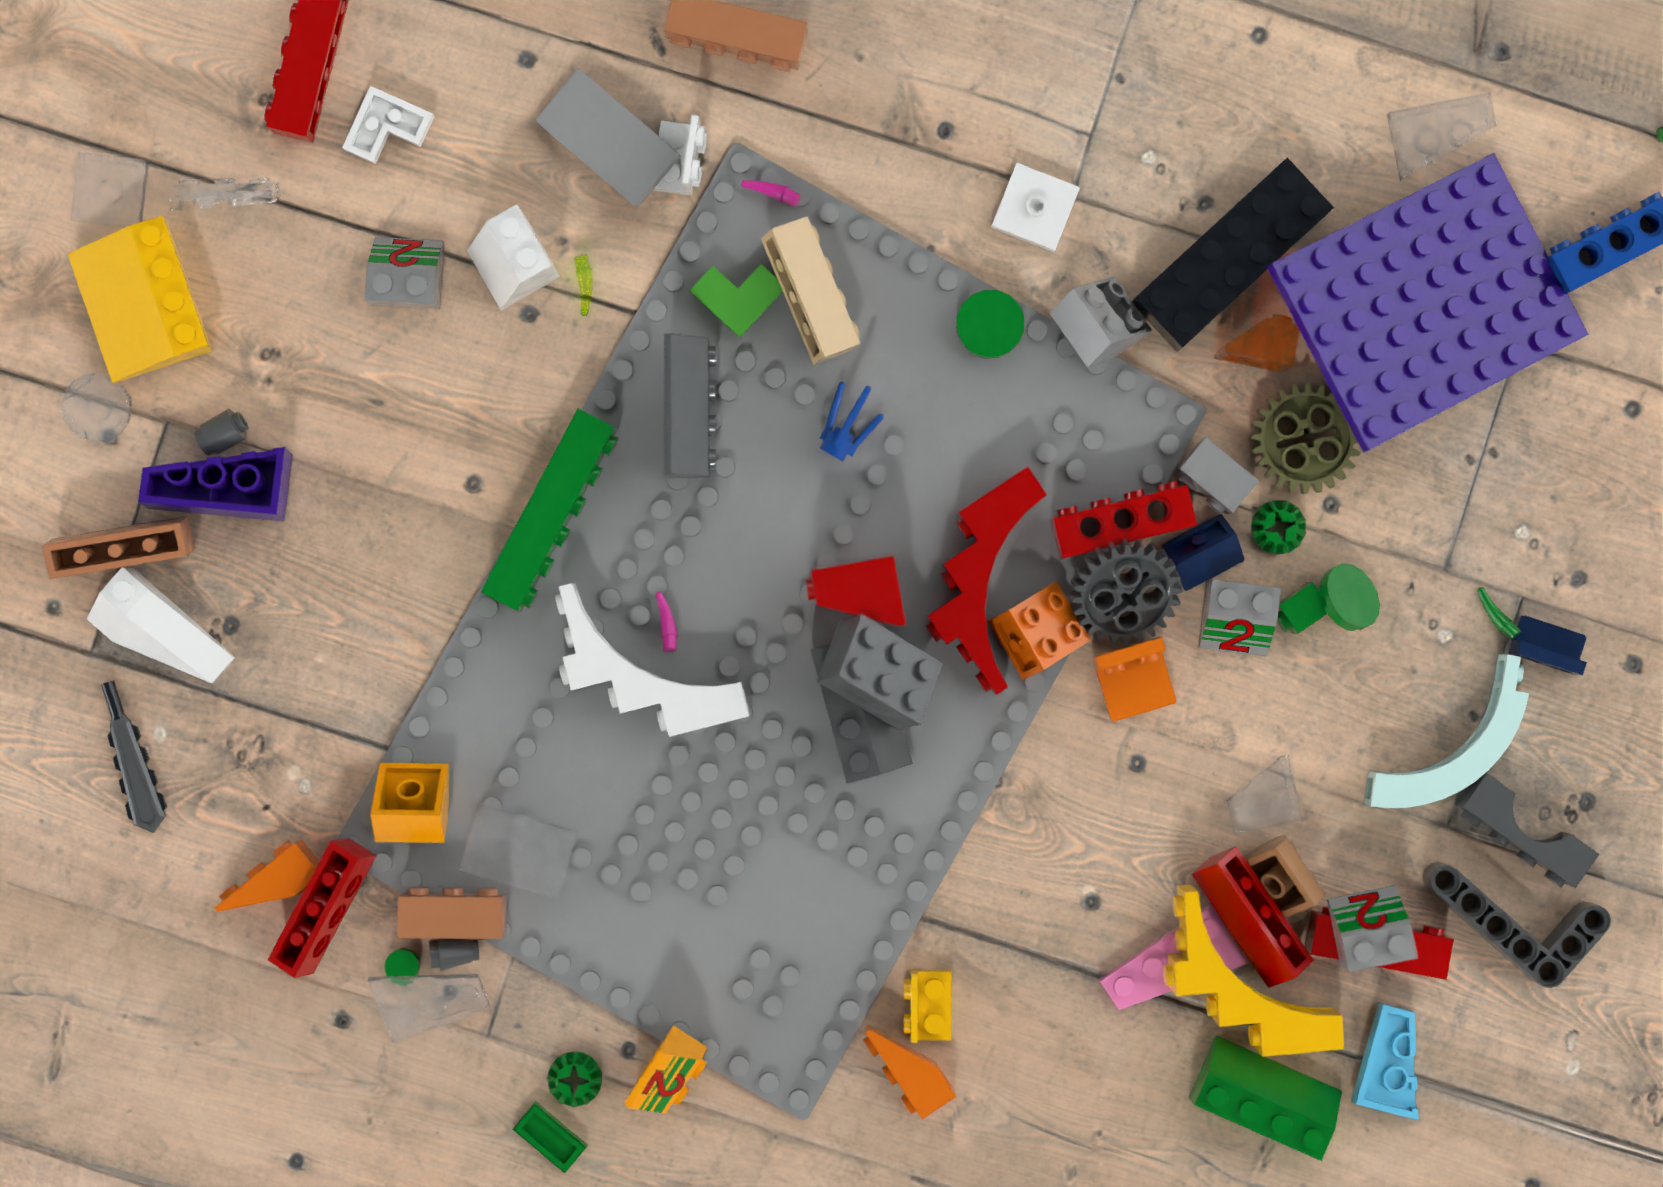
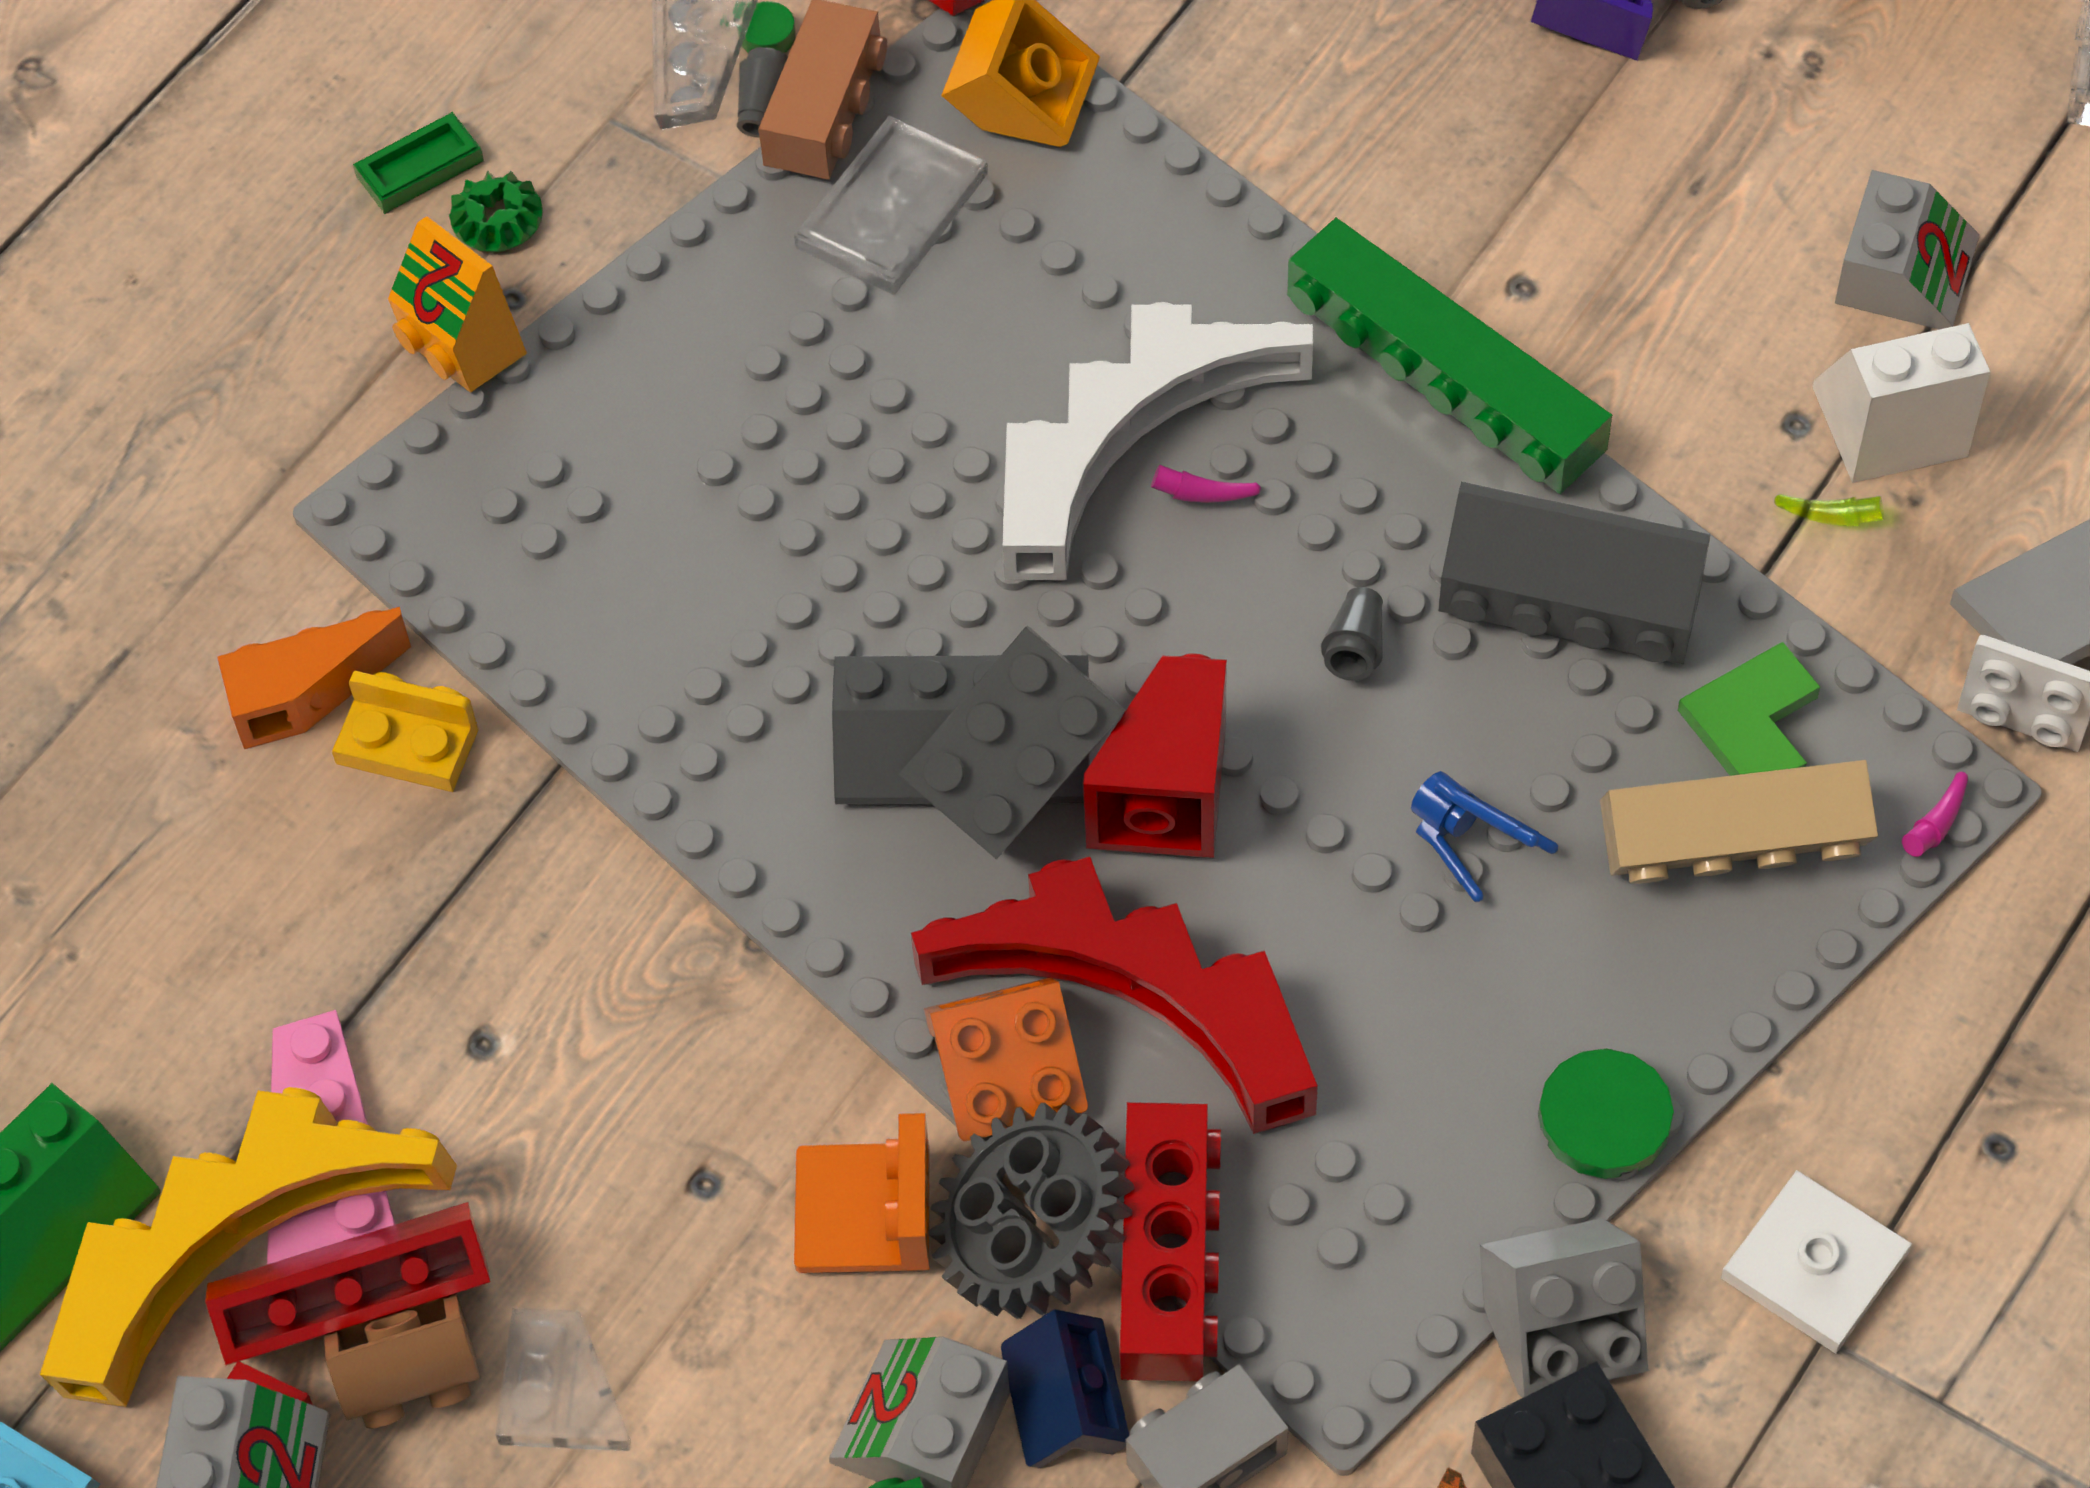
camera: 110 degrees right, 30 degrees down
(745, 515) = (1355, 636): none -> dark grey cone

